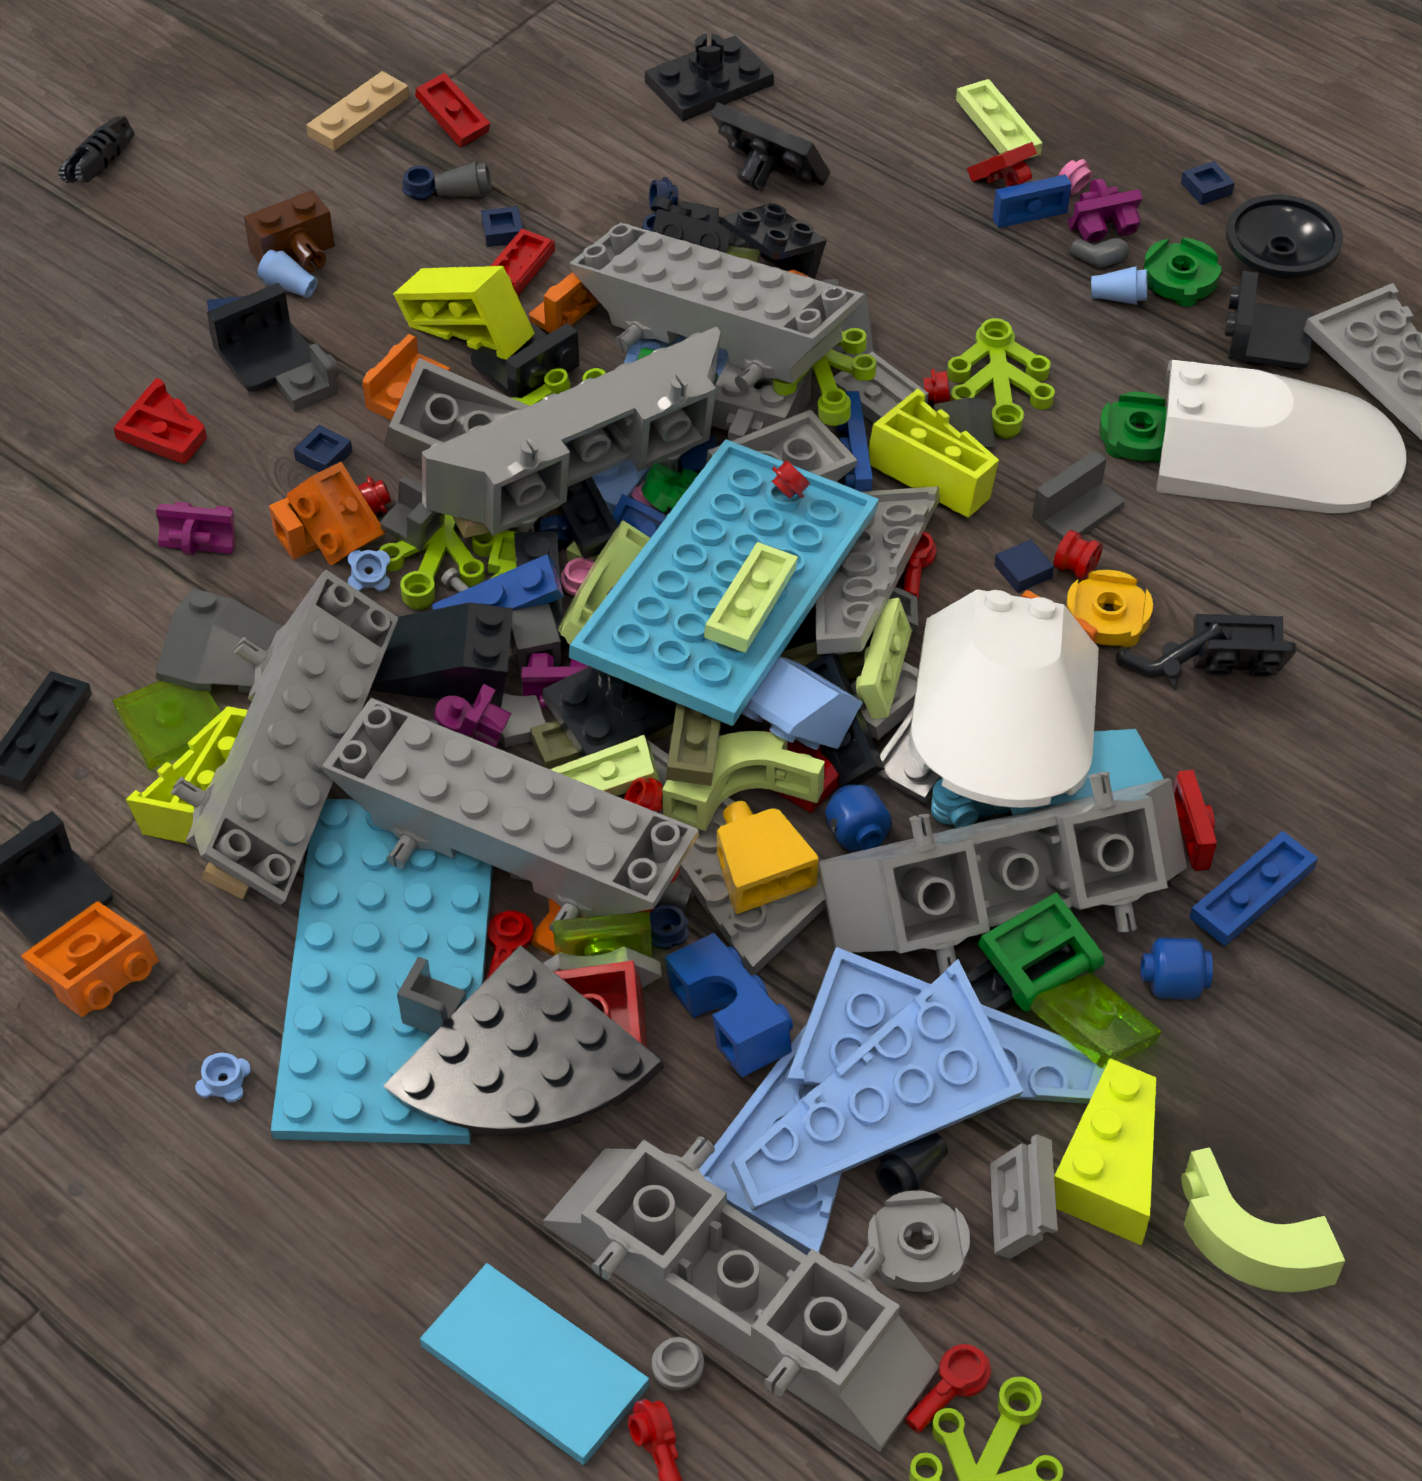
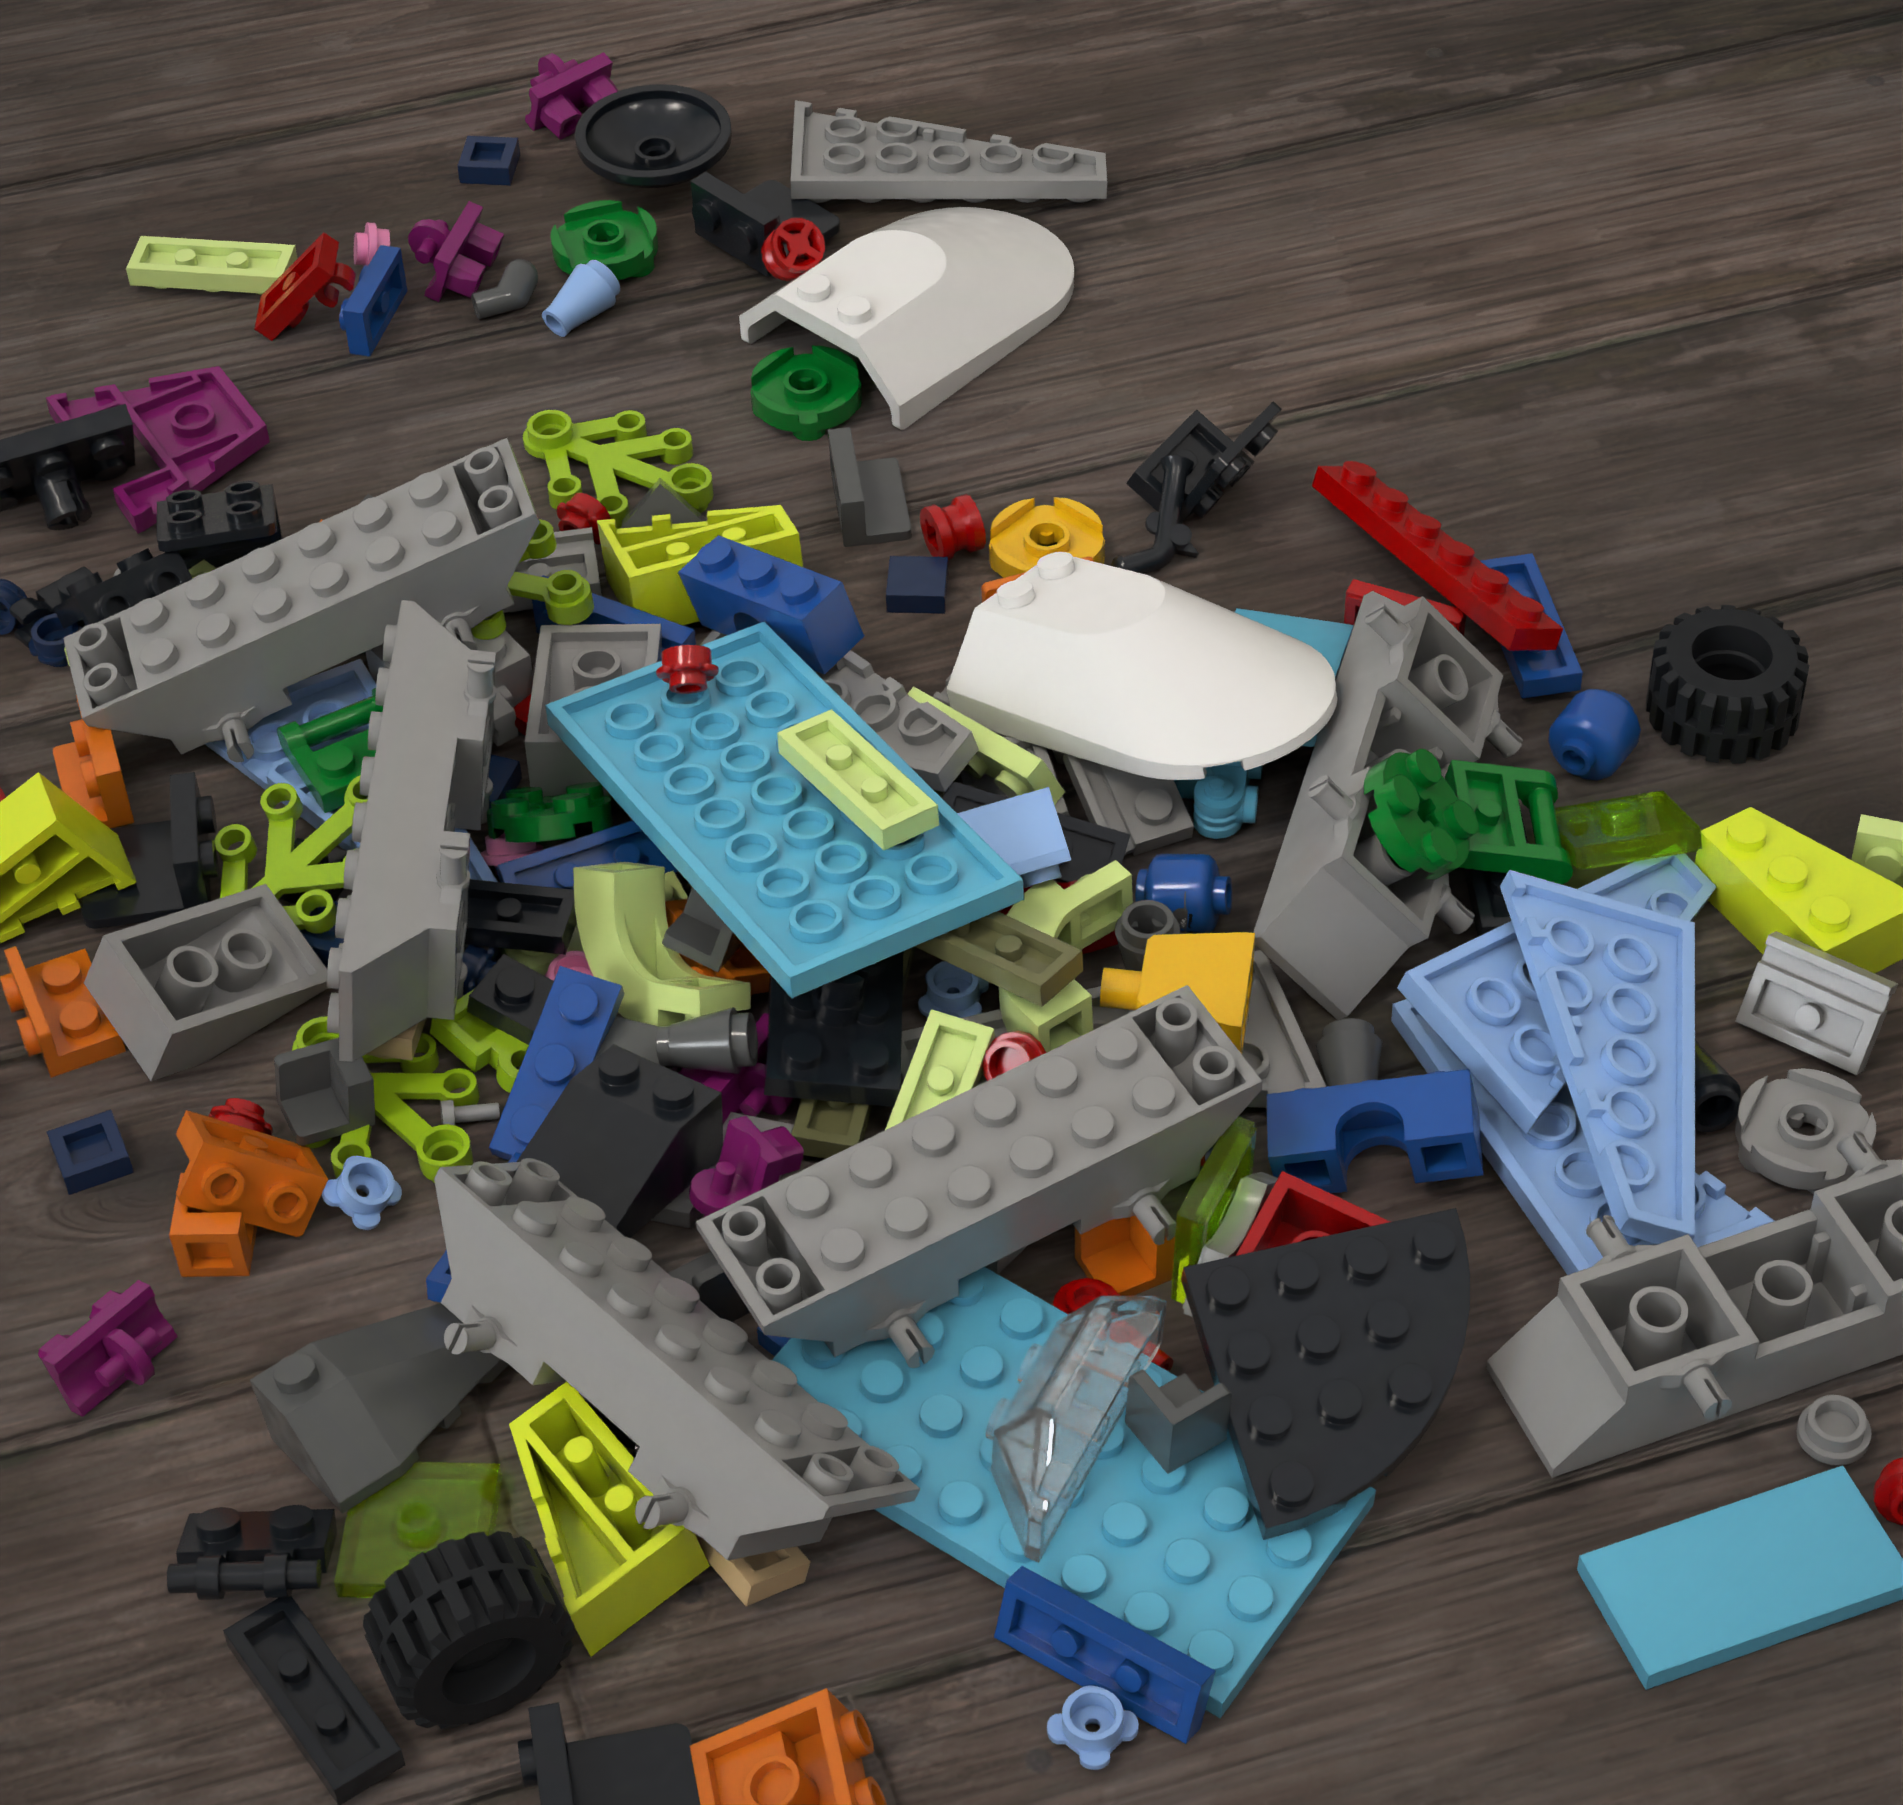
camera: 55 degrees left, 5 degrees down
(90, 761) = (468, 1630): none -> black tyre
(104, 654) = (253, 1551): none -> black plate
(267, 1057) = (1104, 1652): none -> blue plate
(383, 945) = (1067, 1409): none -> clear wedge
(547, 651) = (710, 1042): none -> dark grey cone
(790, 969) = (1349, 1052): none -> dark grey cone
(799, 809) = (1137, 925): none -> dark grey cone
(861, 188) = (189, 425): none -> magenta wing
(901, 495) = (744, 586): none -> blue arch
(994, 896) = (1419, 814): none -> green plate
(1233, 343) = (802, 241): none -> red wheel
(1258, 807) = (1437, 558): none -> red plate
(1287, 989) = (1727, 684): none -> black tyre
(1295, 179) = (565, 89): none -> magenta hips

